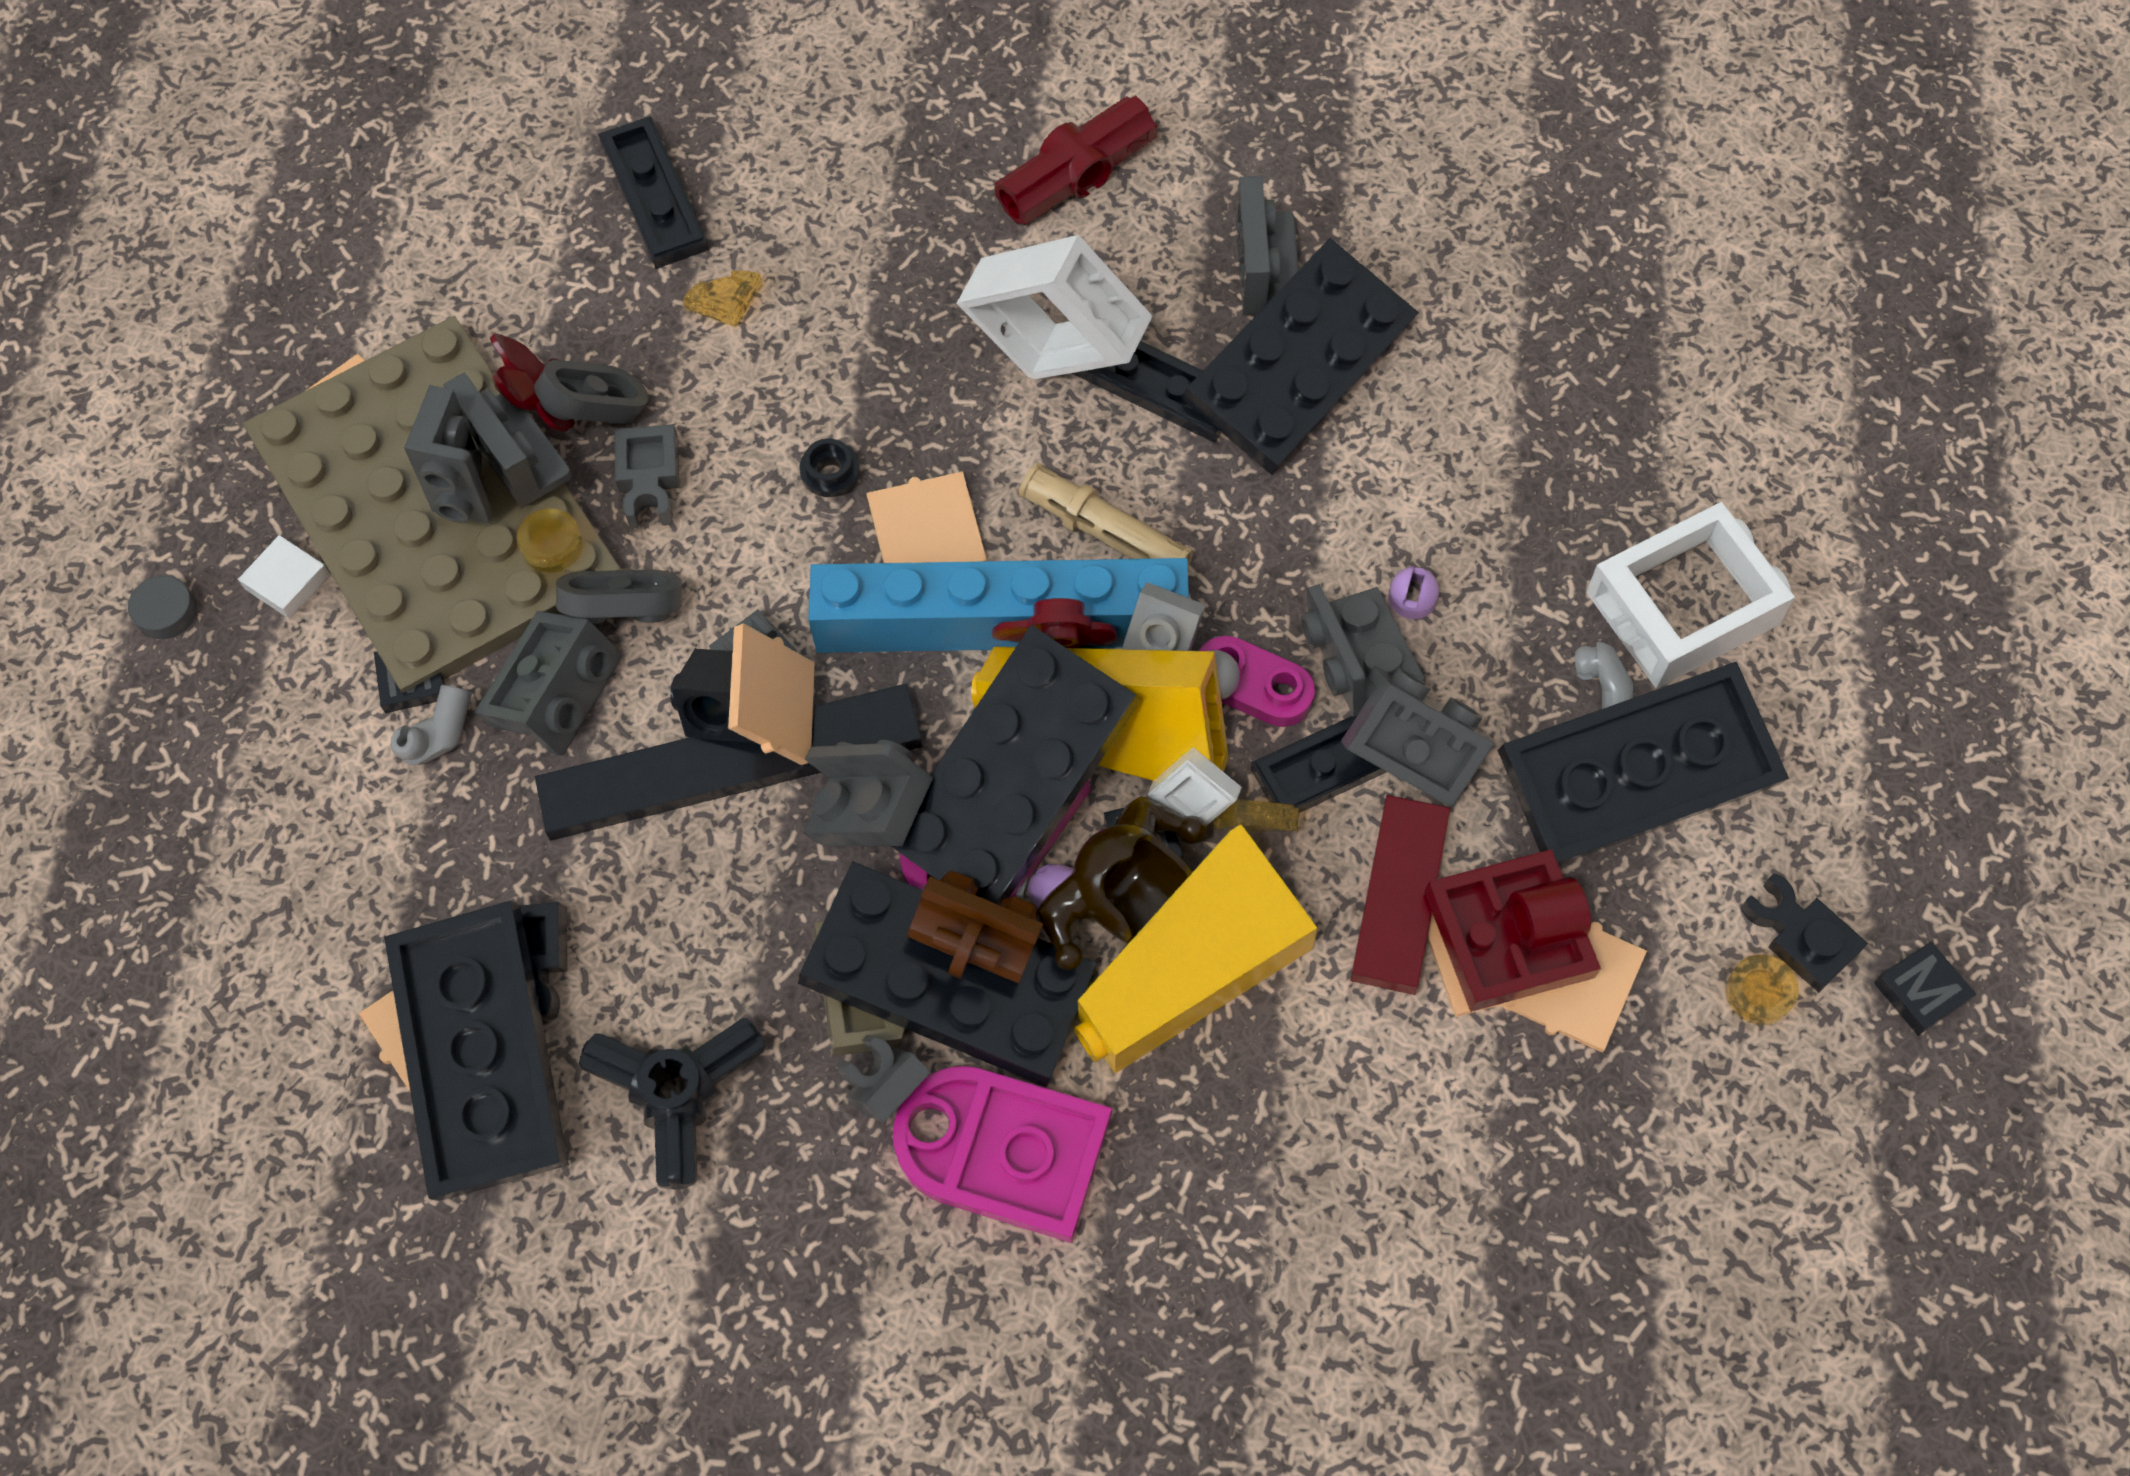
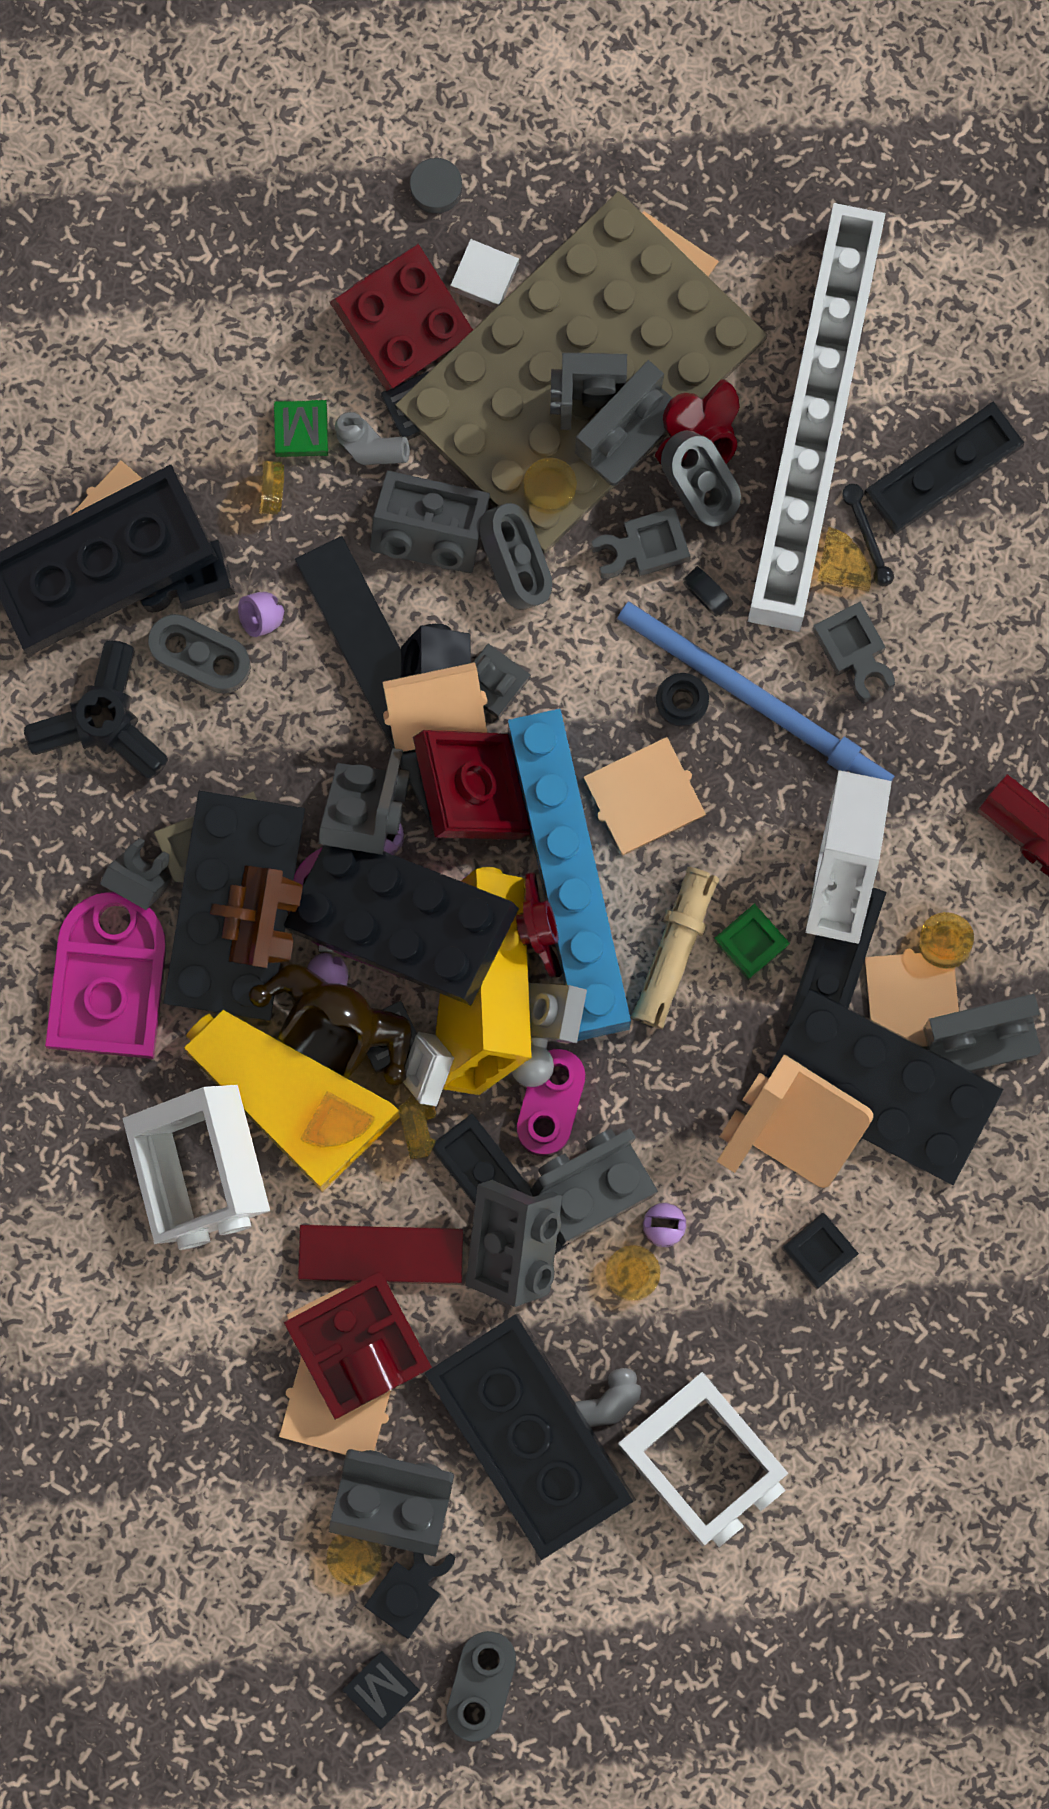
camera: 75 degrees right, 15 degrees up
(299, 659) = (401, 317): none -> dark red plate
(392, 801) = (301, 428): none -> green tile
(451, 841) = (271, 487): none -> clear yellow tile
(564, 276) = (816, 418): none -> white brick
(586, 888) = (260, 613): none -> lavender hinge
(622, 959) = (201, 653): none -> dark grey plate
(655, 277) = (852, 496): none -> black hinge
(717, 418) = (707, 592): none -> black tile
(816, 300) = (852, 644): none -> dark grey plate
(871, 680) = (471, 785): none -> dark red plate
(929, 333) = (842, 753): none -> medium blue bar
(1114, 453) = (751, 941): none -> green tile
(1154, 274) = (946, 940): none -> clear yellow tile
(1199, 317) = (908, 992): none -> light nougat piece
(1245, 889) = (336, 1123): none -> clear yellow tile
(1278, 1122) = (161, 1173): none -> white window
(1331, 429) = (797, 1122): none -> light nougat bracket
(1464, 633) = (633, 1273): none -> clear yellow tile
(1467, 450) = (820, 1251): none -> black tile
(1705, 929) = (392, 1502): none -> dark grey bracket
(1928, 877) = (481, 1686): none -> dark grey plate

